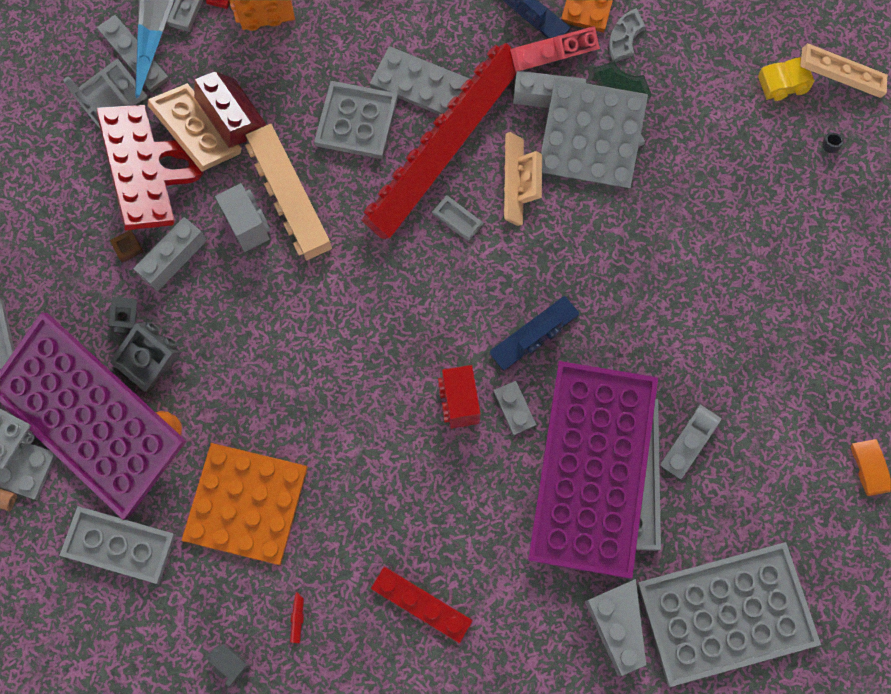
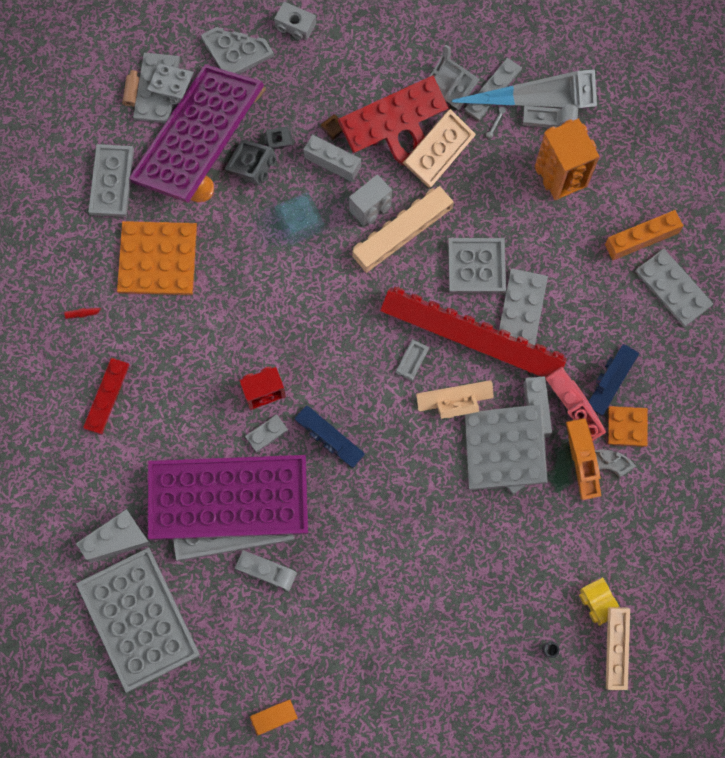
camera: 75 degrees right, 0 degrees up
(190, 69) = (502, 110): none -> light grey hinge
(227, 107) = (461, 169): dark red slope -> none
(228, 664) = (41, 273): dark grey brick -> none
(241, 310) = (299, 218): none -> clear light blue brick
(621, 51) = (585, 458): none -> orange slope

